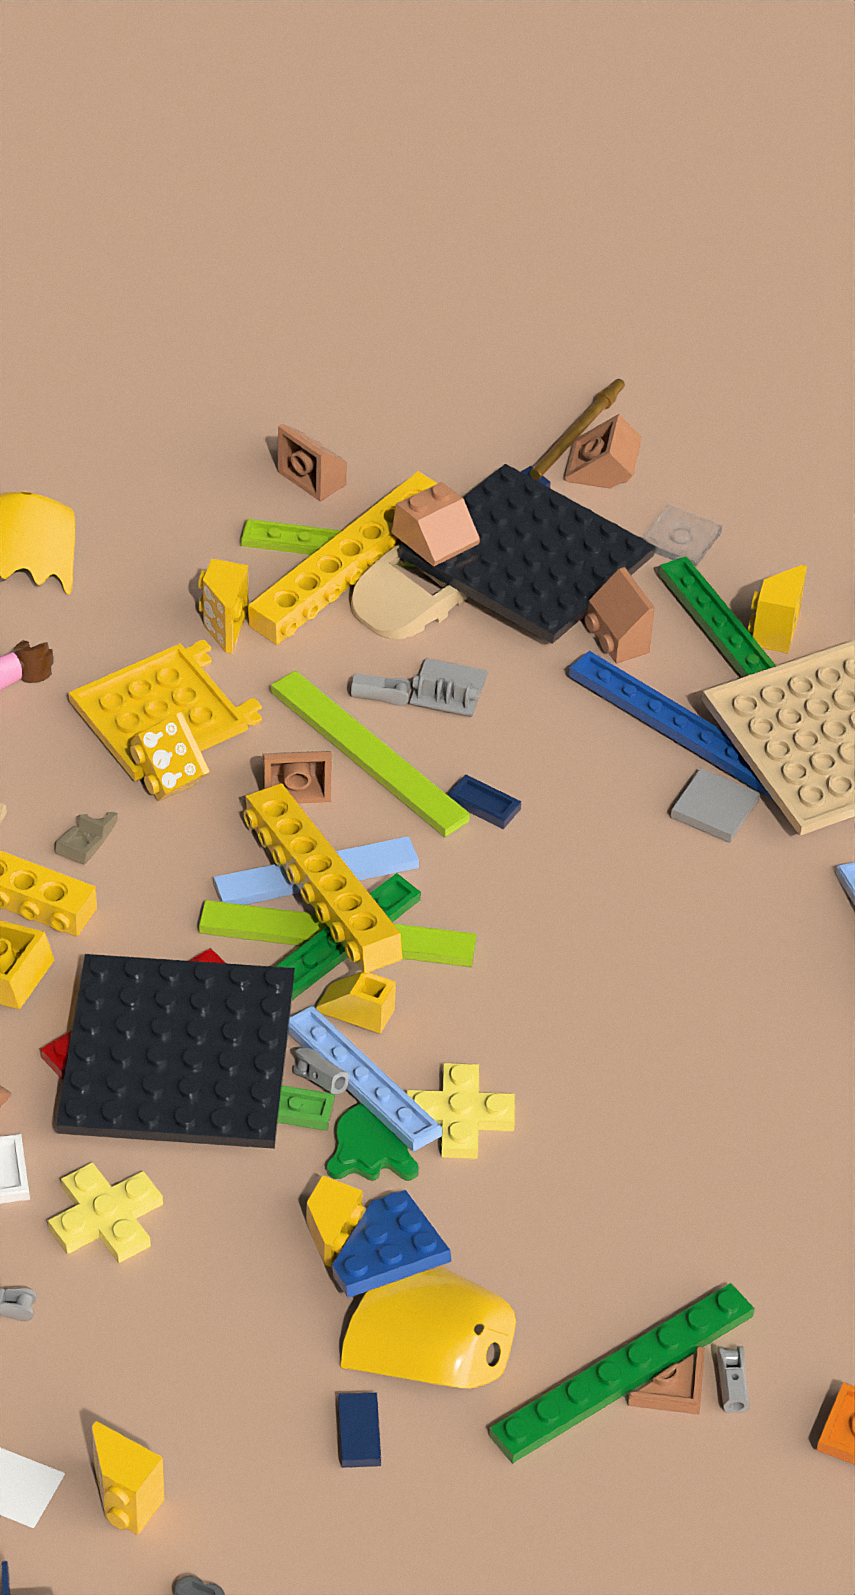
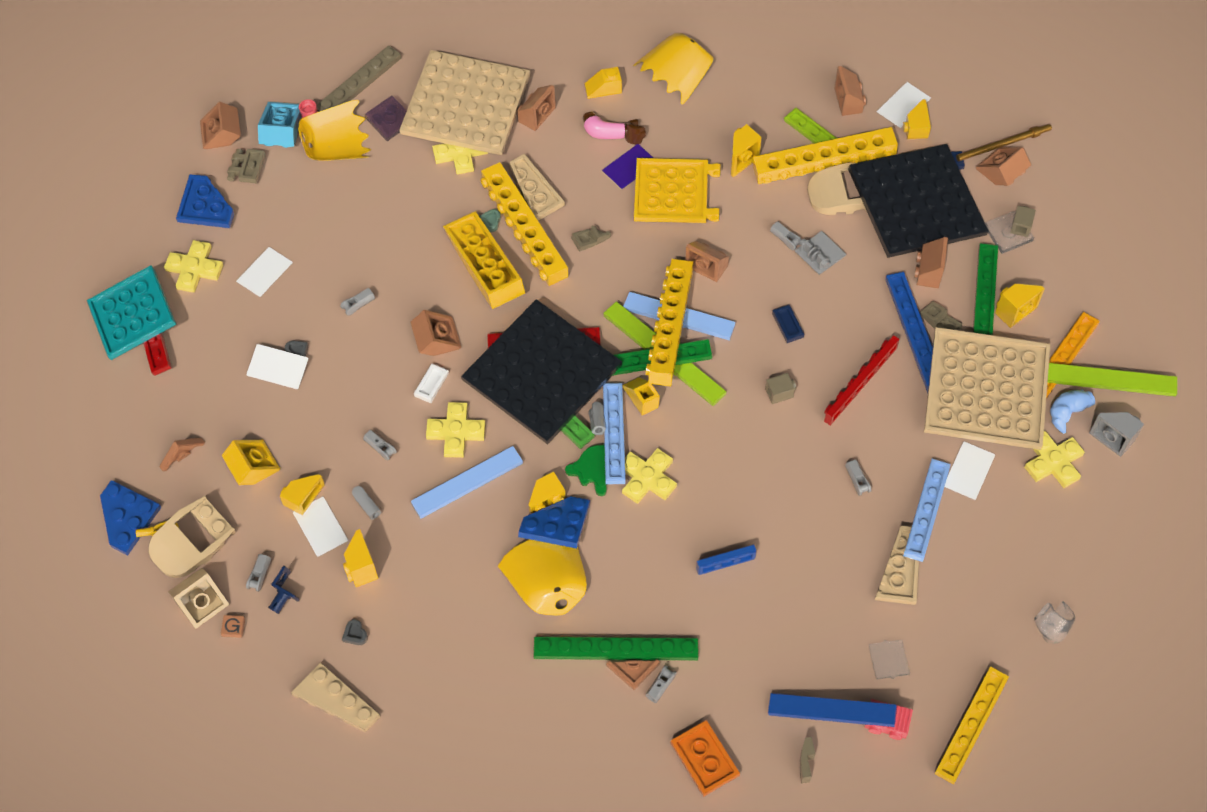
camera: 40 degrees right, 15 degrees up
(52, 1398) = (366, 502): none -> light grey bar
(54, 717) = (623, 169): none -> dark purple sticker
(169, 757) = (648, 219): yellow slope -> none
(188, 1277) = (466, 482): none -> light blue tile
(359, 1430) = (480, 600): dark blue tile -> none
(370, 753) = (754, 268): lime tile -> none
(395, 447) = (902, 103): none -> white sticker
(435, 524) = (872, 162): nougat slope -> none
(441, 455) = (917, 122): none -> yellow slope
(551, 888) = (780, 388): none -> dark tan brick
(653, 825) = (865, 374): none -> red plate
(677, 1154) = (726, 560): none -> blue tile
(684, 688) = (938, 317): none -> dark tan slope
(694, 508) = (1023, 221): none -> dark tan brick
(715, 805) = (899, 390): light grey tile -> none
(765, 947) = (857, 475): none -> light grey bar

